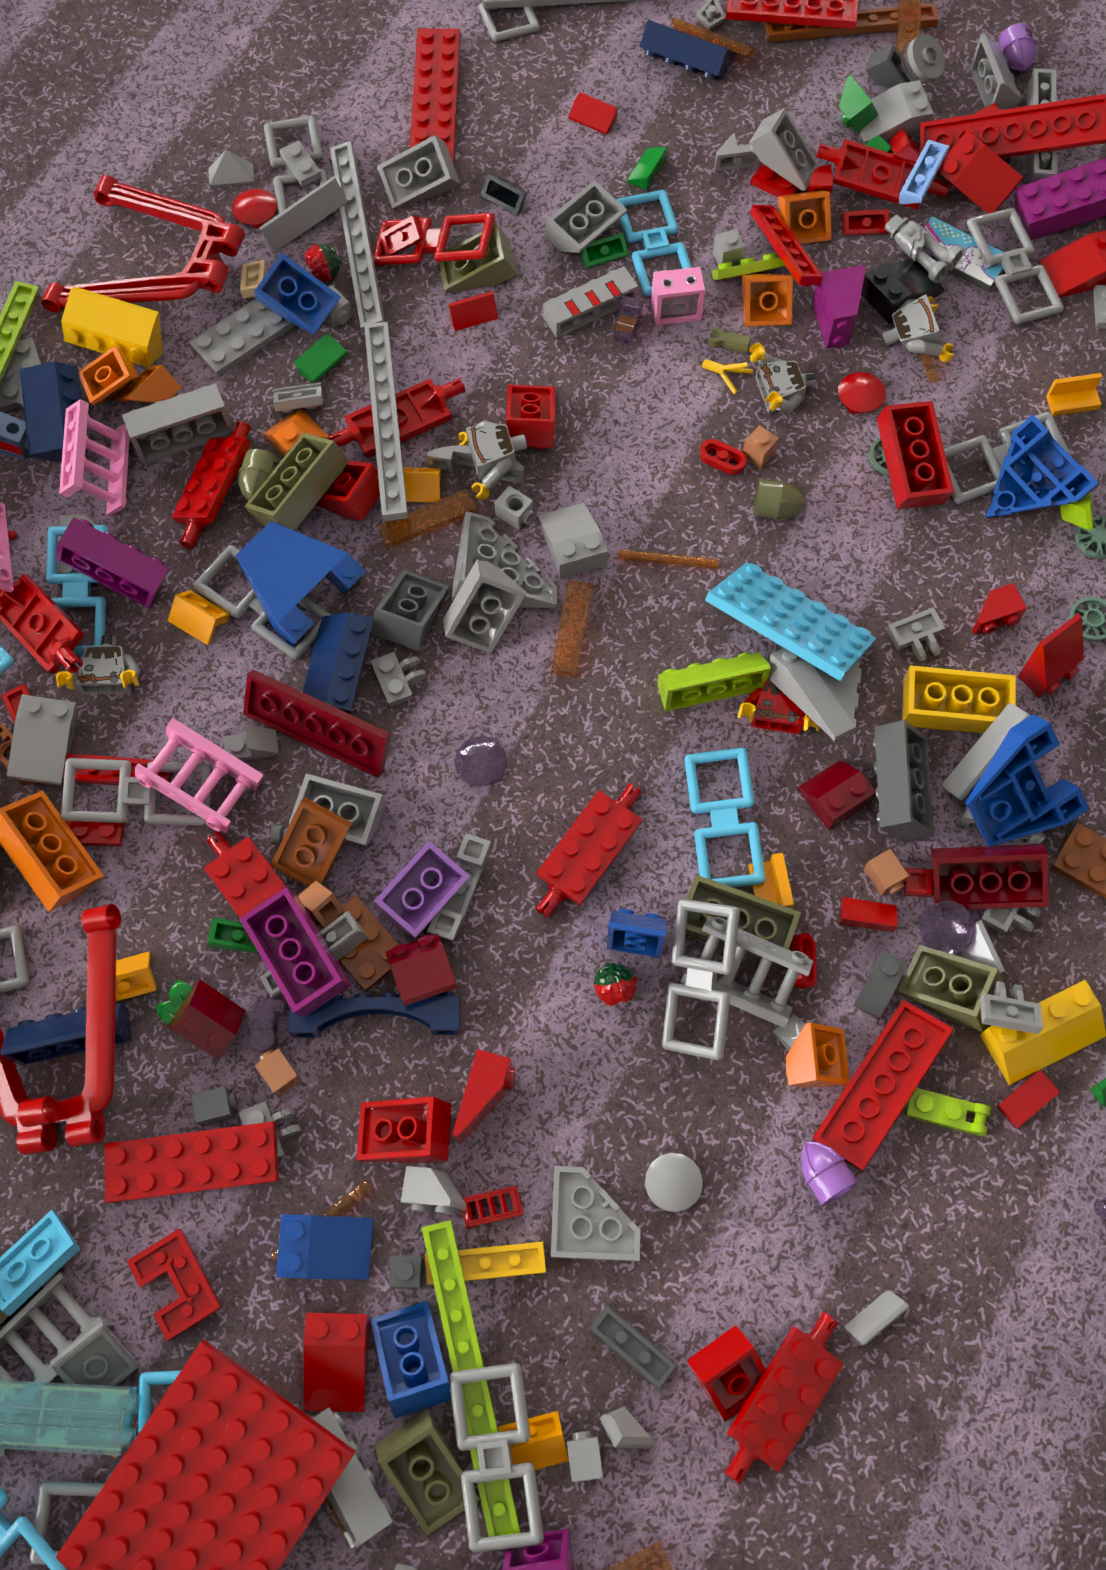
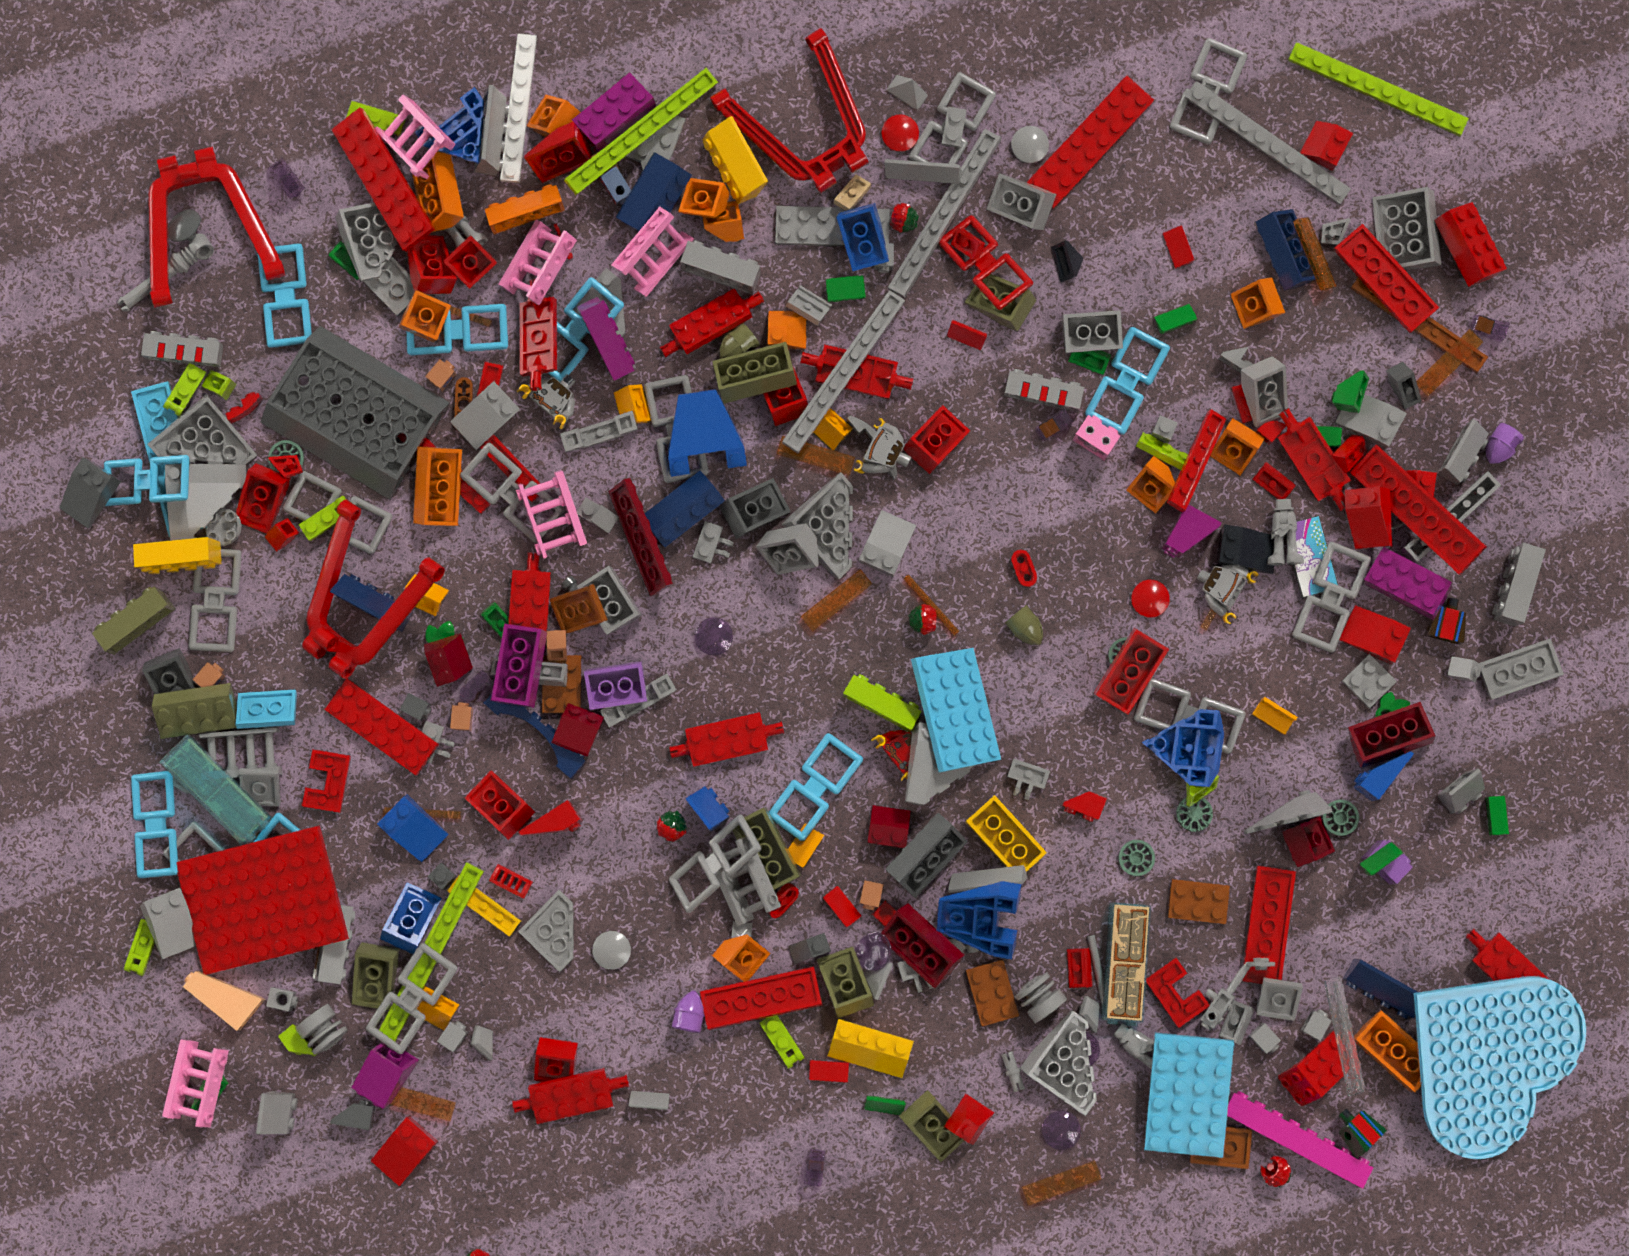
camera: 40 degrees right, 15 degrees up
(186, 665) = (599, 432): none -> light grey slope
(335, 1361) = (374, 887): red slope -> none
(383, 134) = (1030, 144): none -> light grey dish
(430, 1189) = (488, 847): light grey slope -> none
(514, 499) = (870, 487): light grey brick -> none
(633, 1347) = (520, 1008): dark grey tile -> none
(675, 572) = (923, 619): none -> piece
(704, 103) = (1257, 302): none -> orange slope
(722, 369) = (1082, 510): yellow plant -> none
(729, 340) = (1105, 493): olive bar -> none
(760, 447) = (1049, 582): nougat brick -> none
(780, 381) = (1104, 551): torso -> none
(922, 59) = (1429, 397): light grey piece -> none
(923, 173) = (1334, 486): light blue slope -> none
(1010, 1012) = (852, 1022): light grey hinge -> none
(1055, 658) = (1080, 863): red slope -> none

